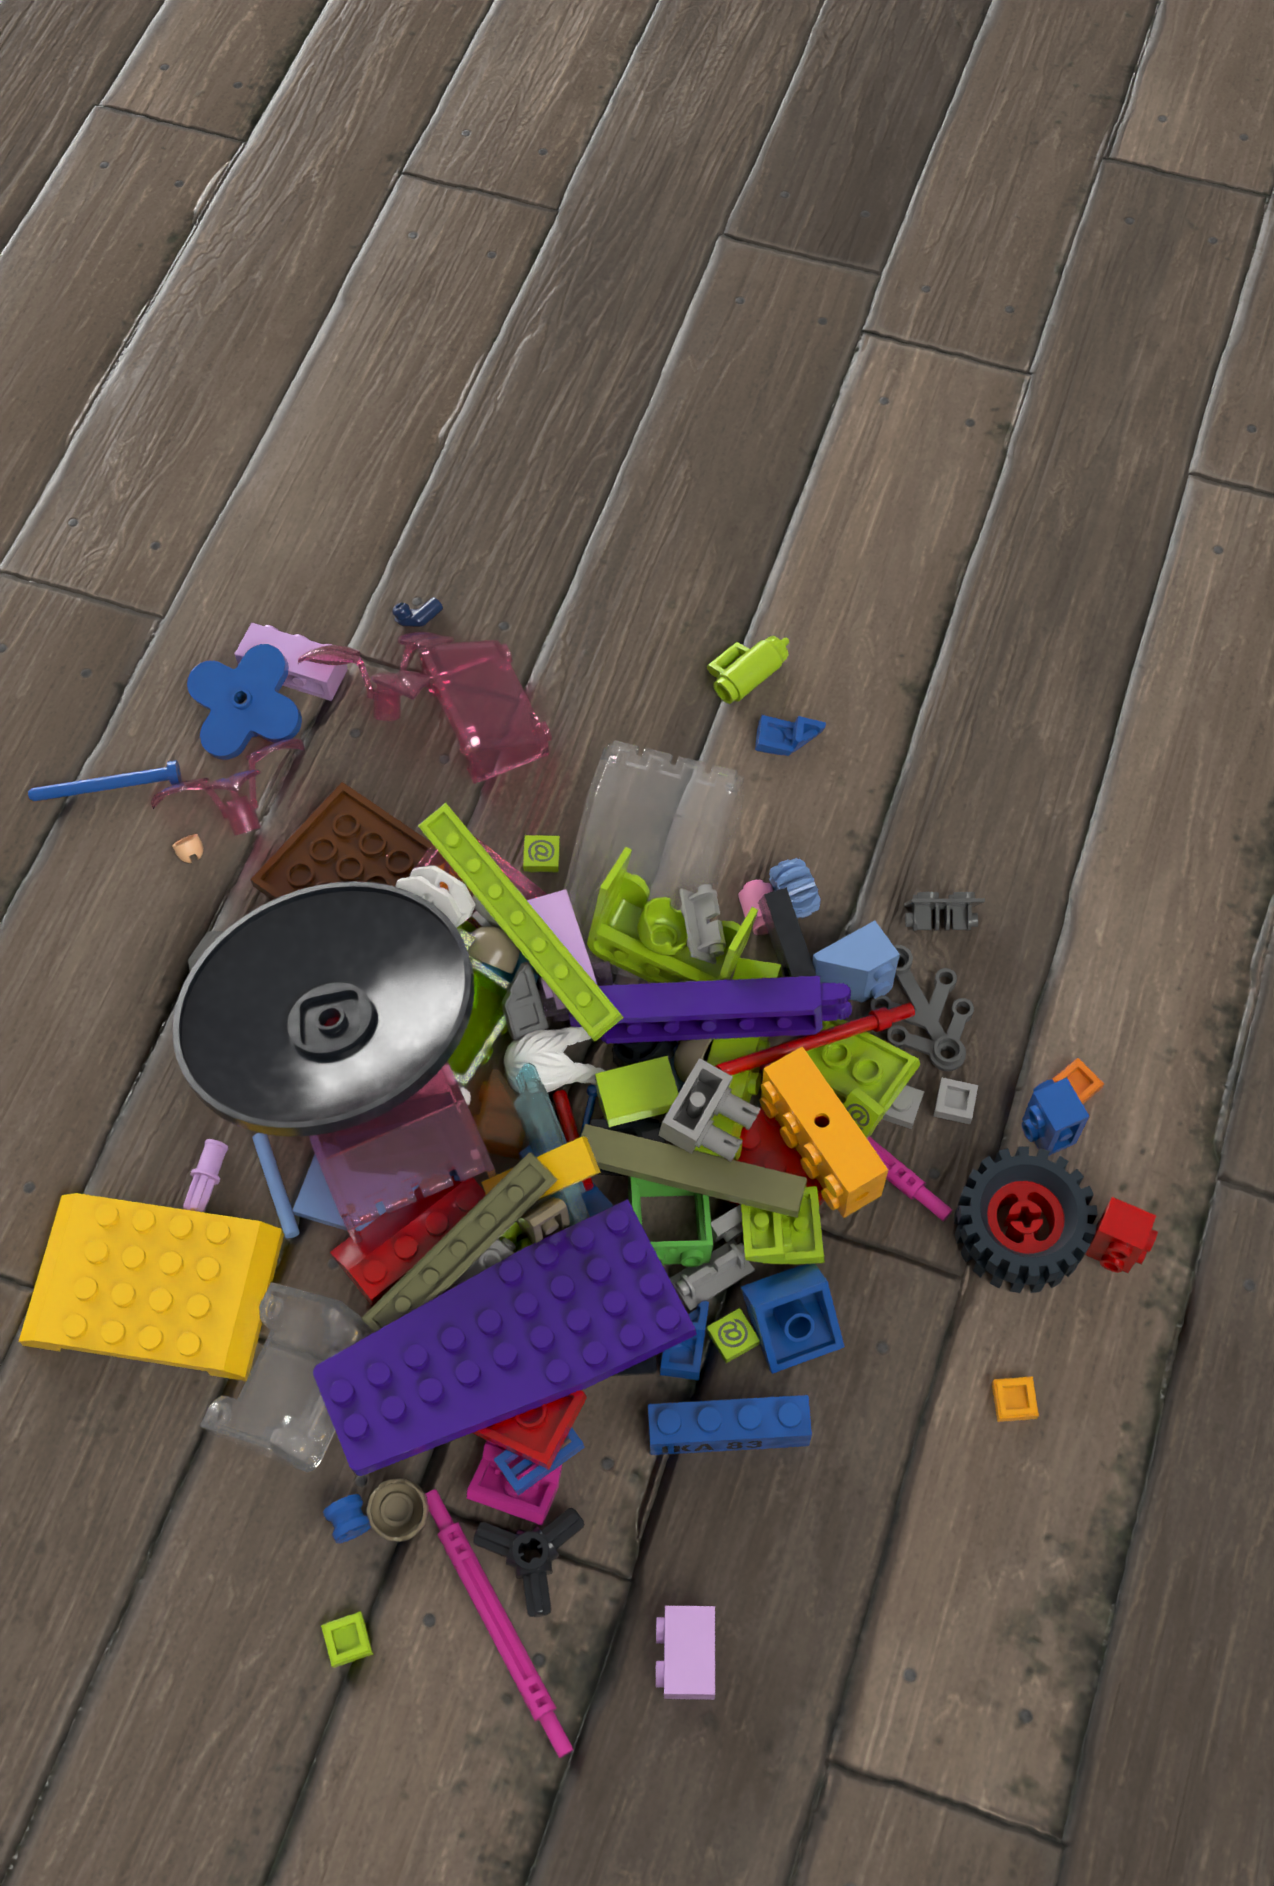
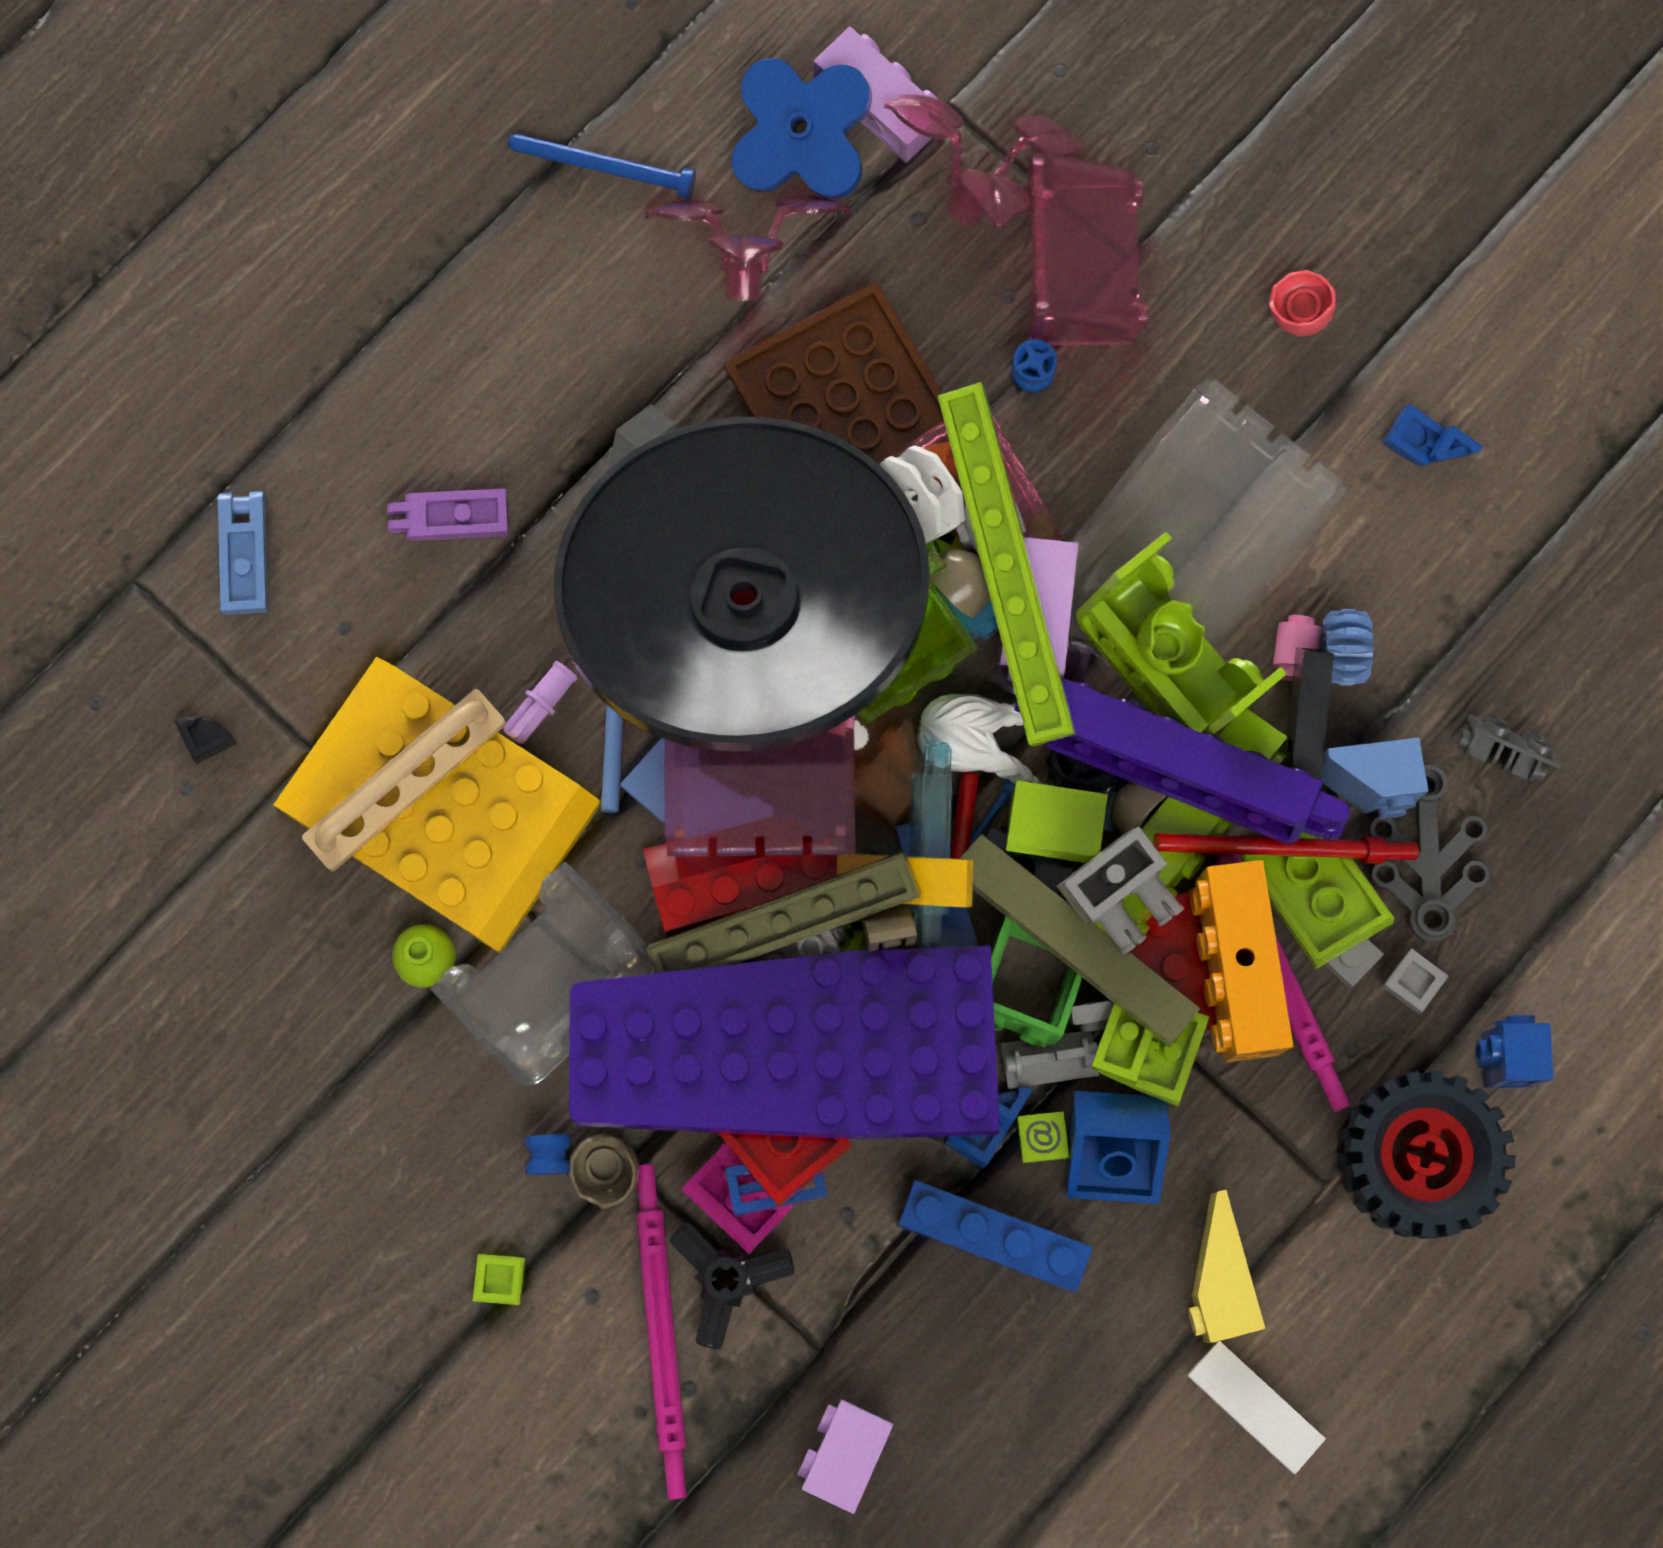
camera: 20 degrees right, 15 degrees up
(80, 1347) = (326, 836): none -> tan piece
(82, 1069) = (451, 515): none -> medium lavender hinge
(184, 1407) = (423, 955): none -> lime brick
(188, 846) = (667, 288): light nougat hinge -> none
(416, 617) = (1051, 95): dark blue arm -> none
(482, 785) = (1038, 357): none -> blue wheel
(523, 1004) = (970, 661): dark grey tile -> none
(541, 853) = (1072, 470): lime tile -> none
(655, 679) = (1302, 303): none -> coral hair
(704, 937) = (1211, 674): light grey hinge -> none
(748, 670) = (1422, 337): lime piece -> none
(864, 1110) = (1299, 953): lime tile -> none
(922, 1385) = (1222, 1284): none -> light yellow slope
(990, 1469) = (1256, 1407): none -> white tile
(1015, 1399) = (1319, 1343): light orange tile -> none
(1082, 1080) = (1567, 1018): orange tile -> none
(1122, 1236) = (1525, 1225): red brick -> none

